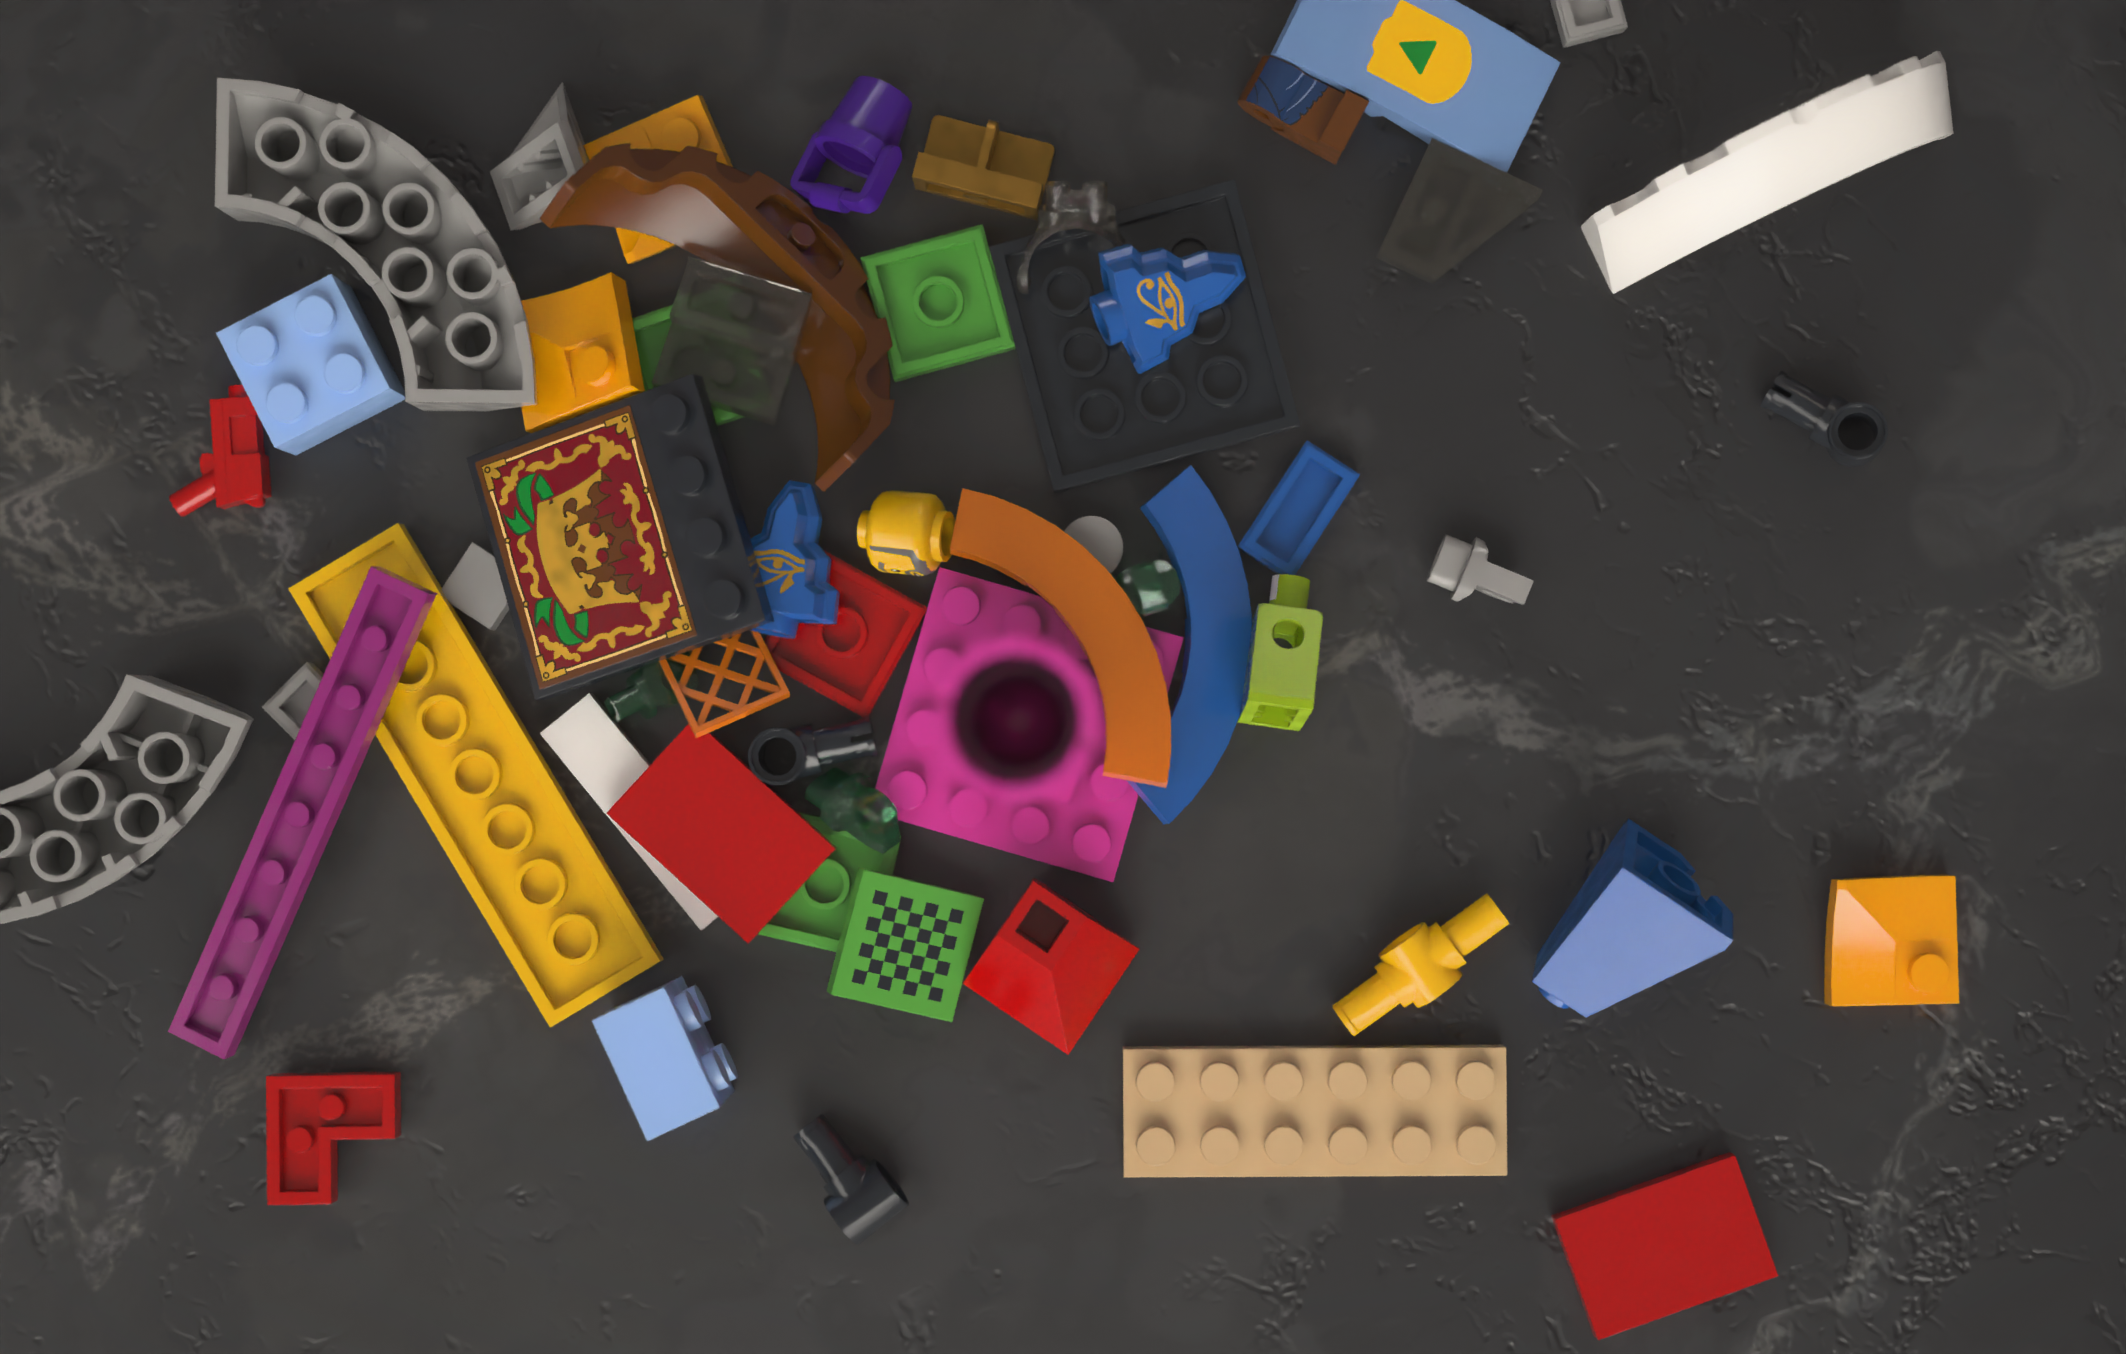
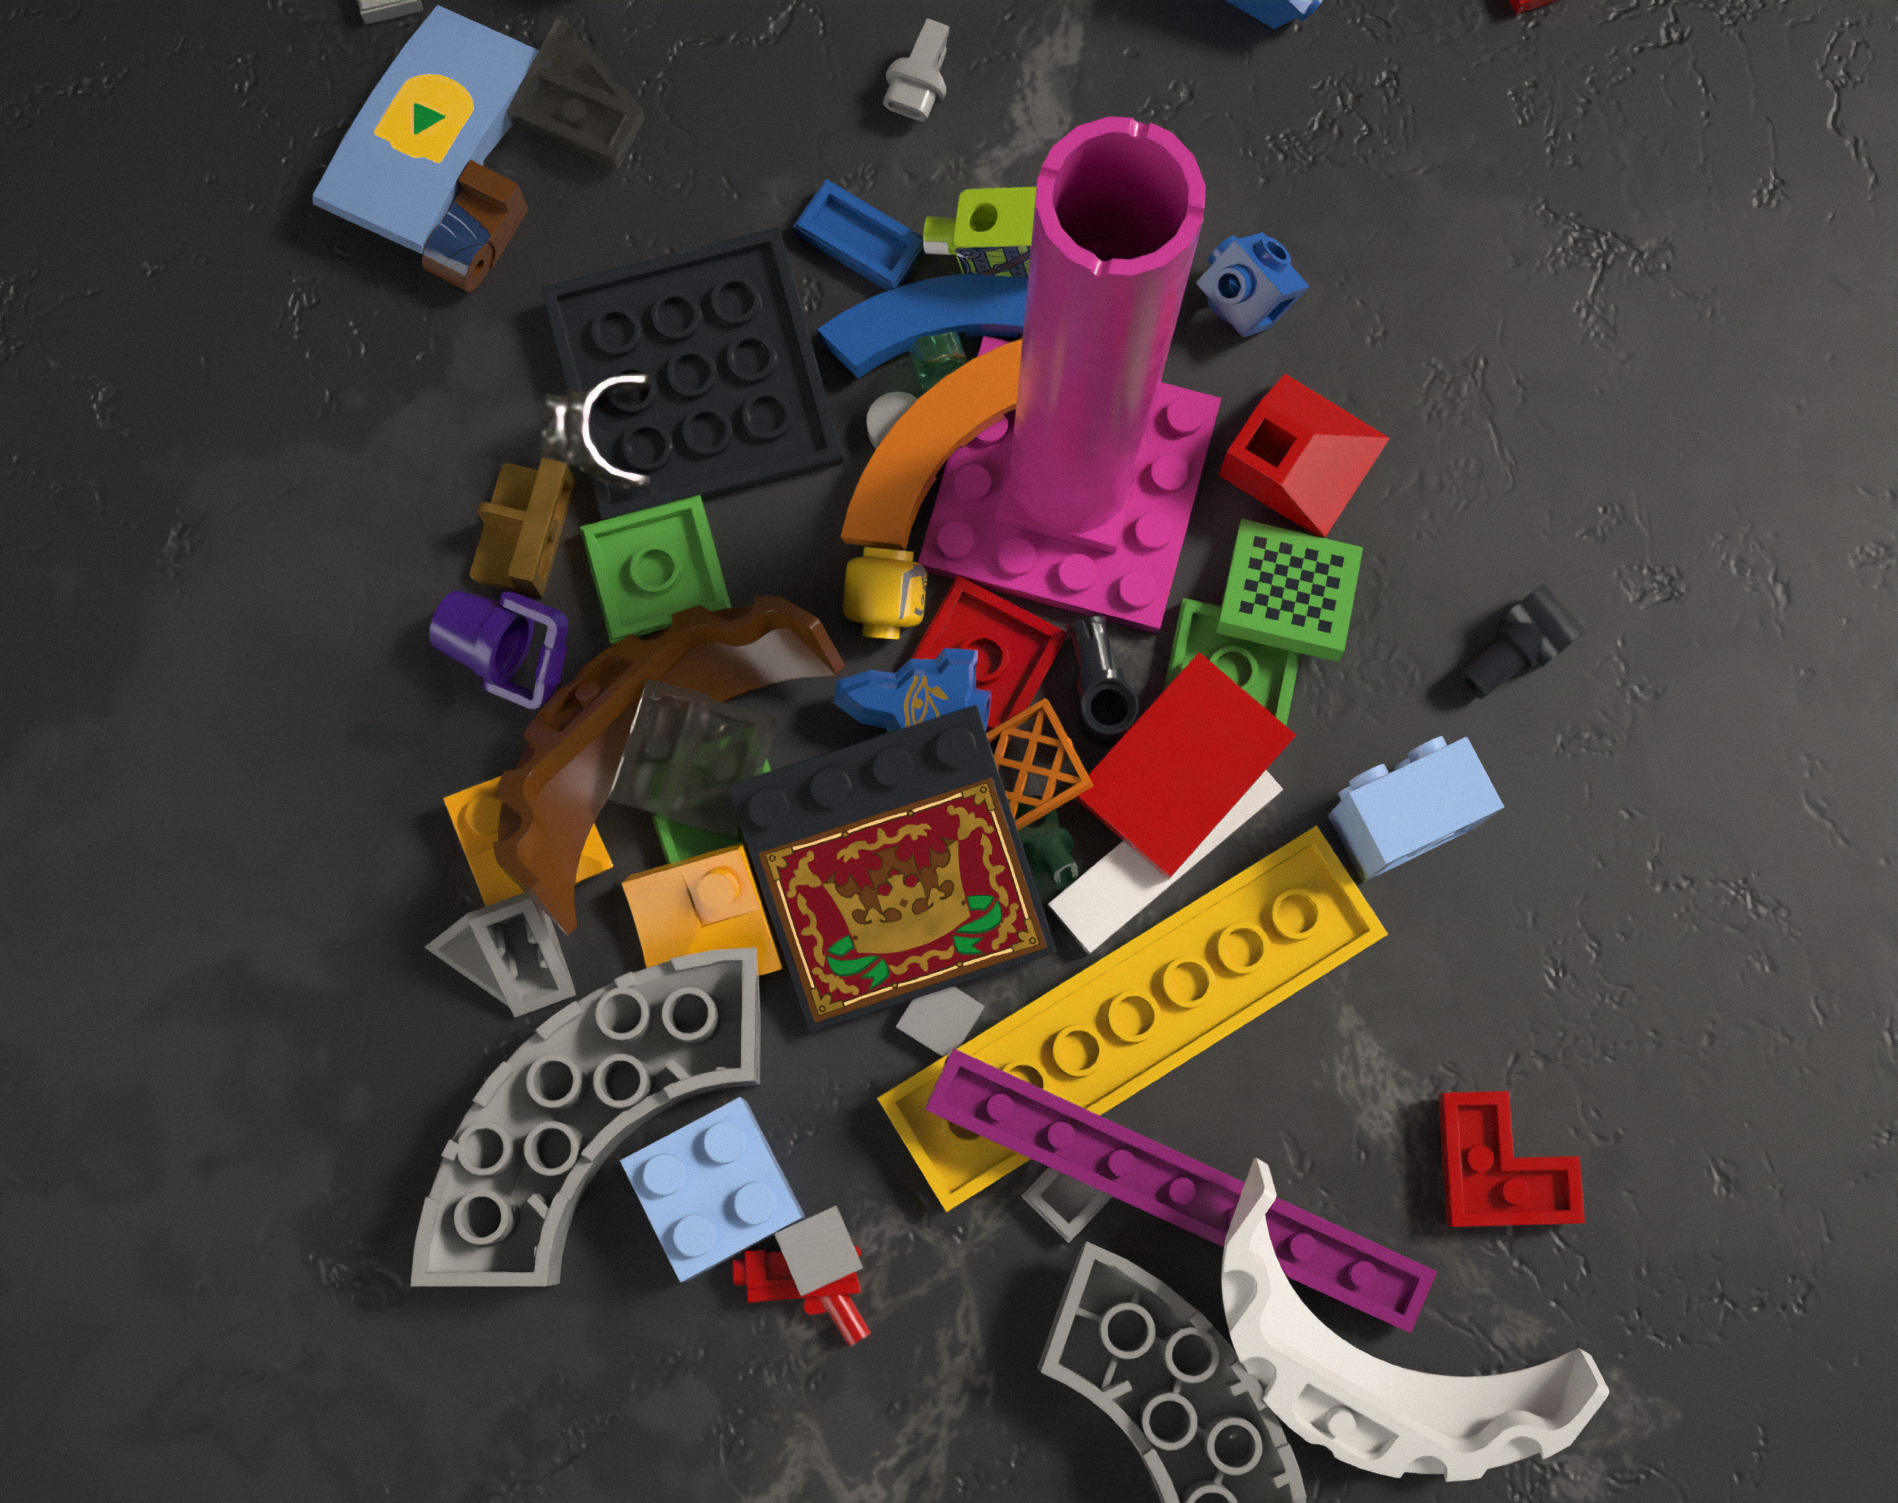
camera: 90 degrees left, 10 degrees down
(98, 997) = (1375, 1410): none -> white windscreen
(250, 467) = (818, 1250): none -> light grey tile
(855, 807) = (1159, 634): clear green piece -> none
(1157, 297) = (655, 349): blue rock -> none
(1233, 915) = (1251, 282): none -> blue brick
(1314, 1111) = (1431, 221): tan plate -> none
(1420, 964) = (1289, 120): yellow pin -> none

